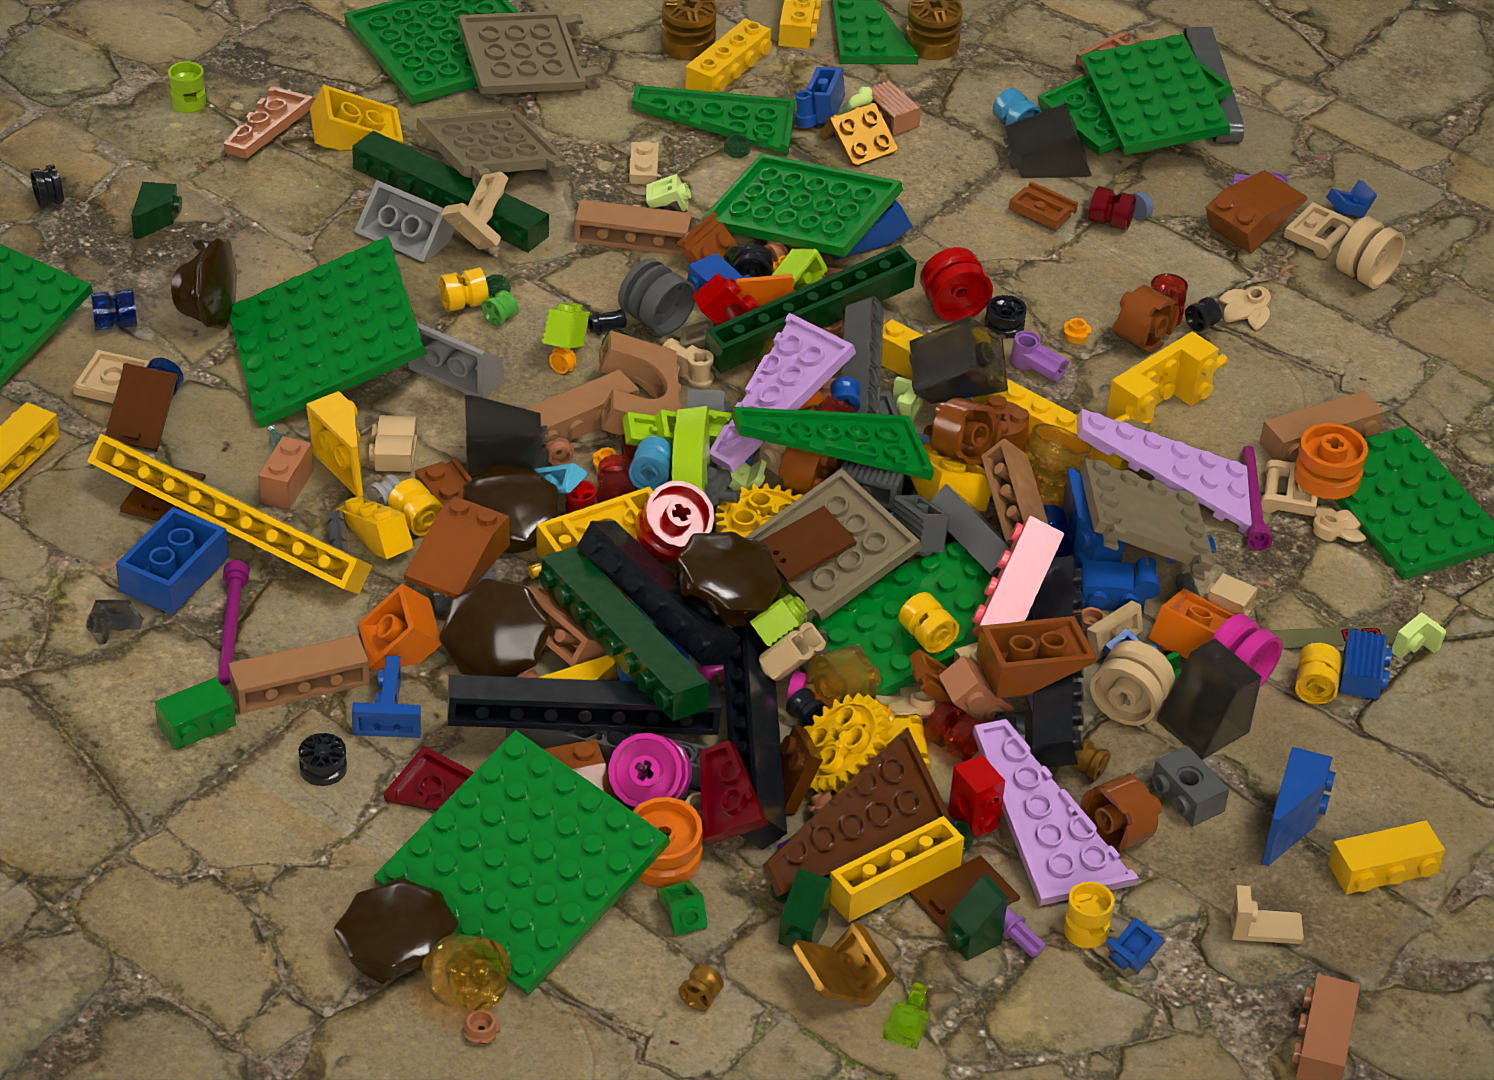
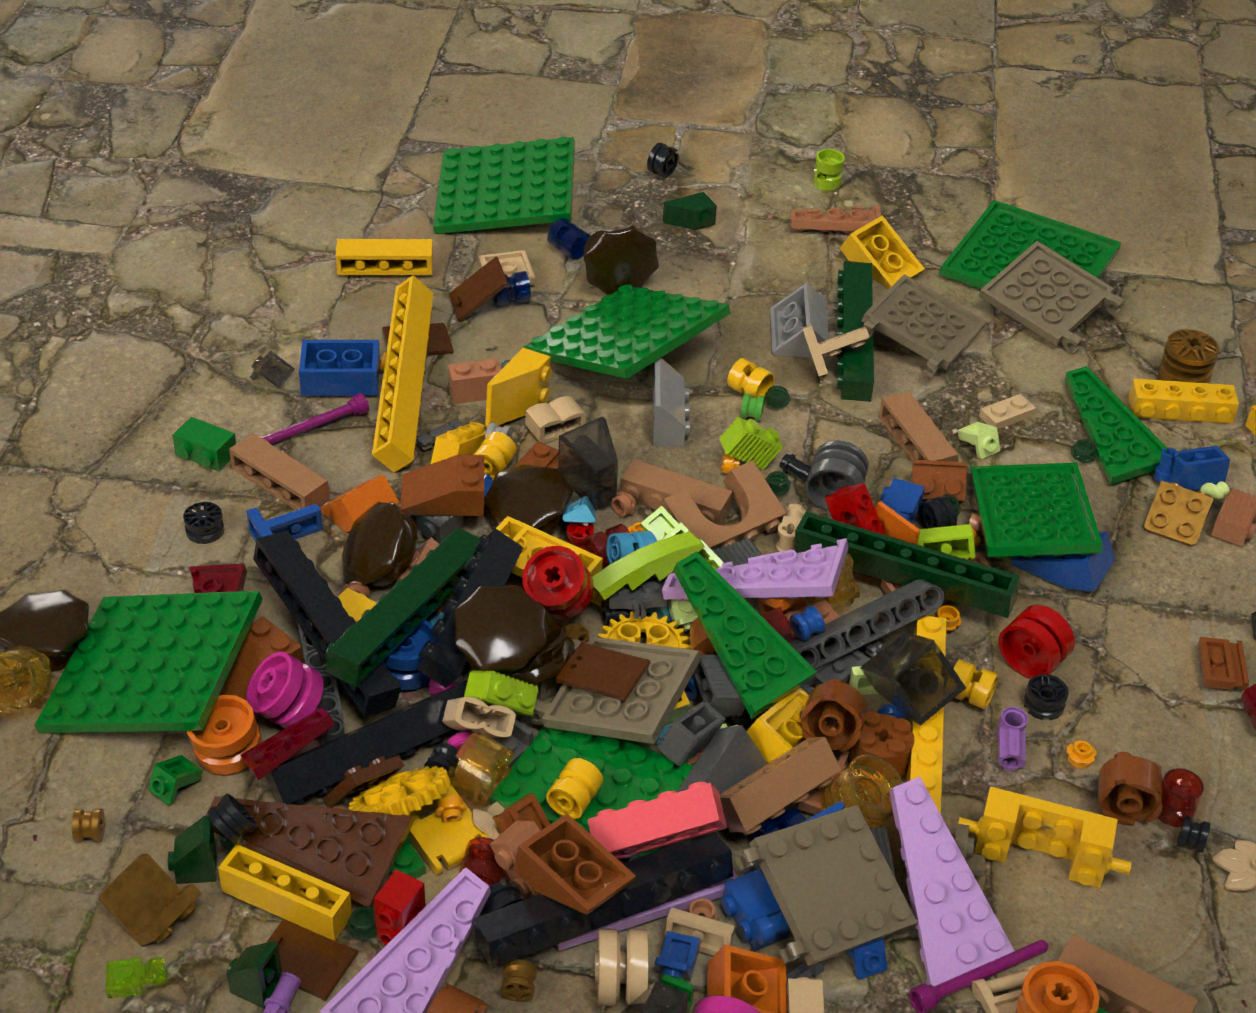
camera: 60 degrees right, 0 degrees up
(816, 852) = (232, 819): none -> black wheel

